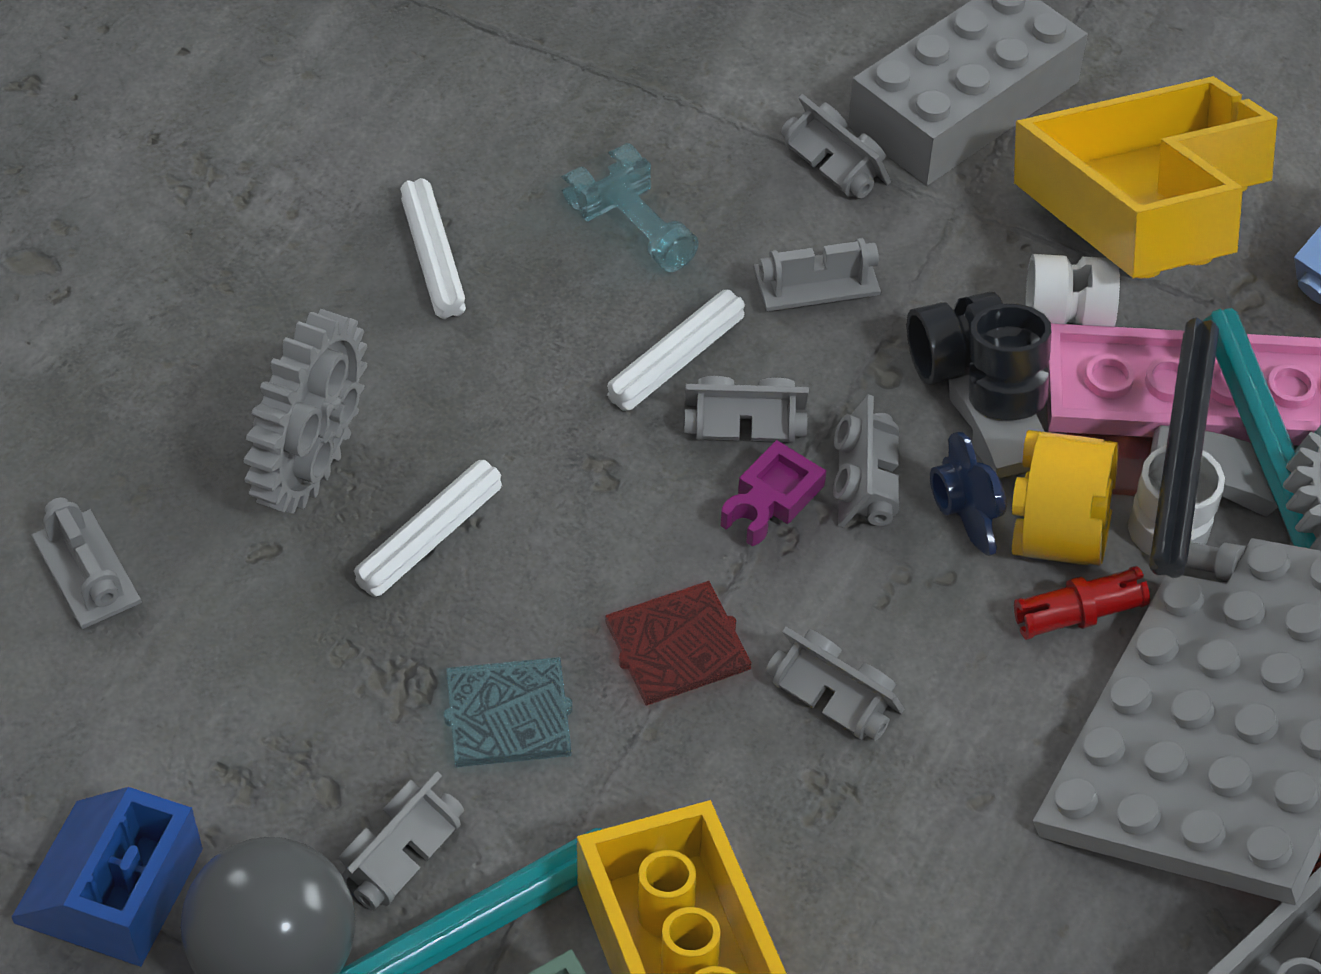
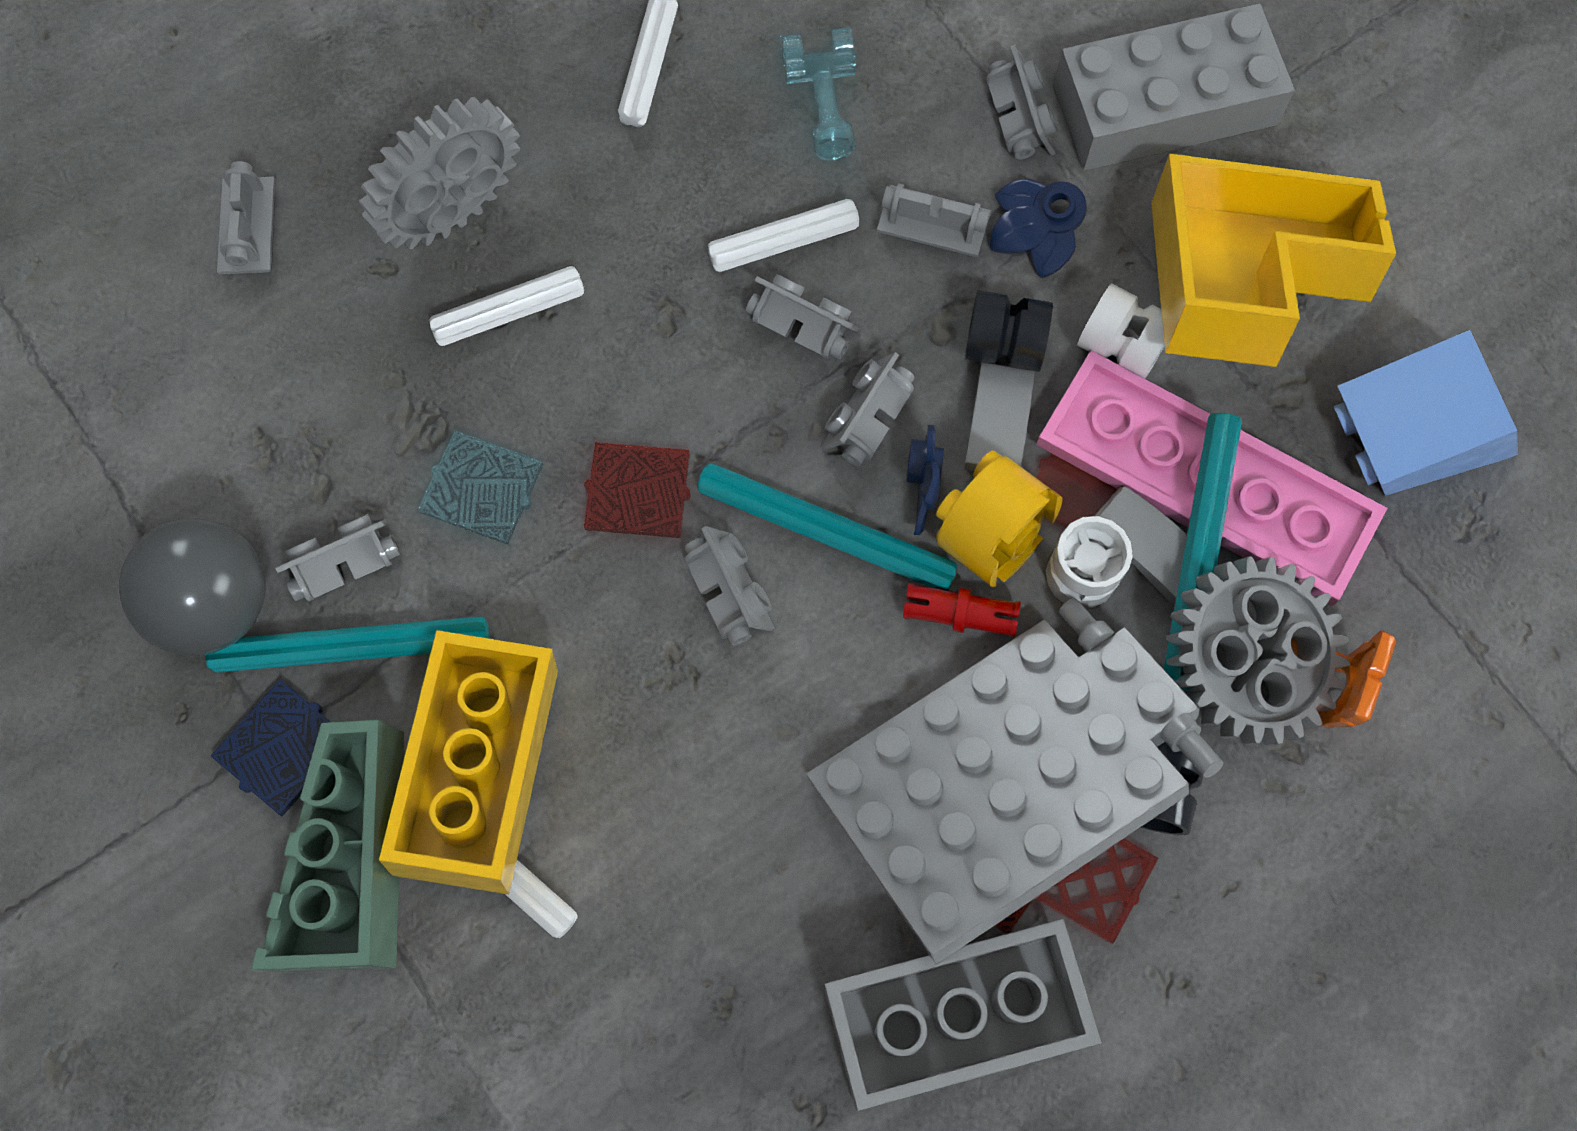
camera: 30 degrees right, 20 degrees up
(113, 873) = (125, 489): blue slope -> none
(775, 485) = (784, 393): magenta plate -> none
(893, 589) = (827, 527): none -> teal axle
(913, 244) = (1034, 227): none -> dark blue plate
(1009, 361) = (1021, 377): black wheel -> none
(1184, 449) = (1107, 528): black axle -> none

